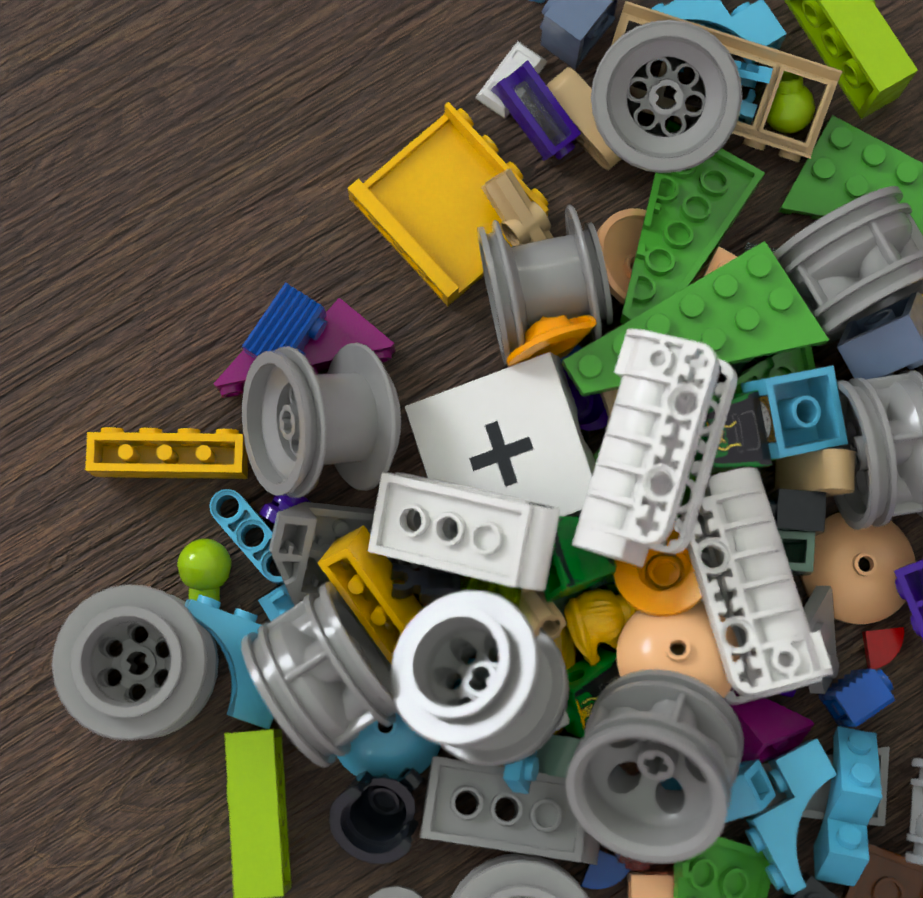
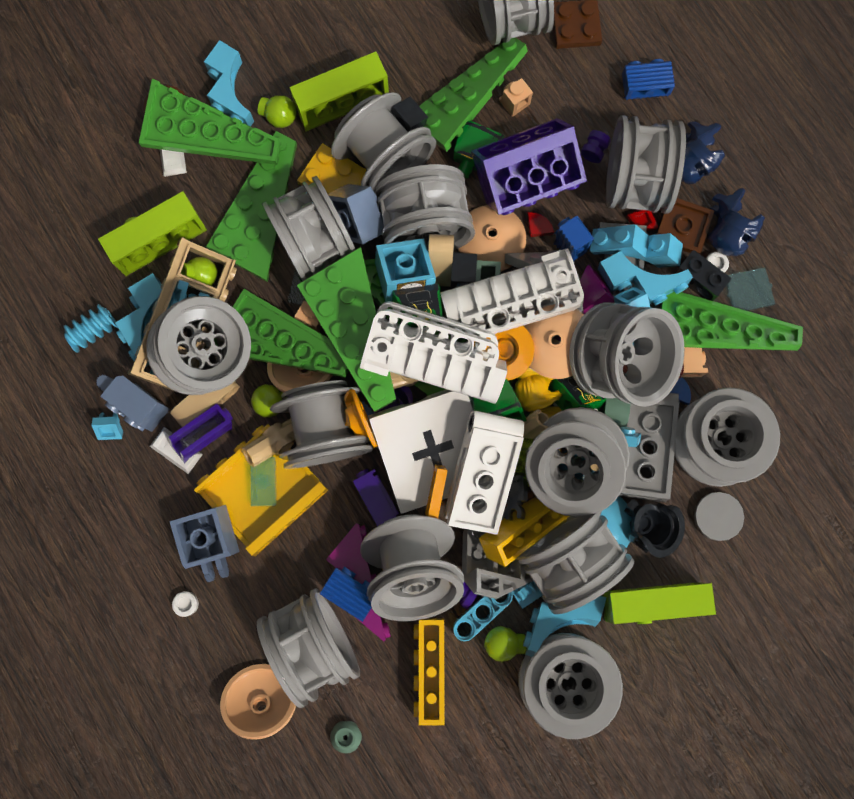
camera: 90 degrees left, 0 degrees up
(87, 338) = (345, 728): none -> sand green plate
(147, 187) = (243, 697): none -> light nougat dish
(205, 265) = (307, 647): none -> light grey wheel
(281, 97) = (185, 603): none -> white tile
(374, 121) = (197, 550): none -> sand blue hinge
(435, 373) = (375, 496): none -> dark purple window
(436, 457) = (436, 491): none -> light orange tile
(457, 207) = (264, 483): none -> clear light blue plate
(590, 204) = (264, 398): none -> lime piece
(896, 823) = (644, 218): none -> red tile

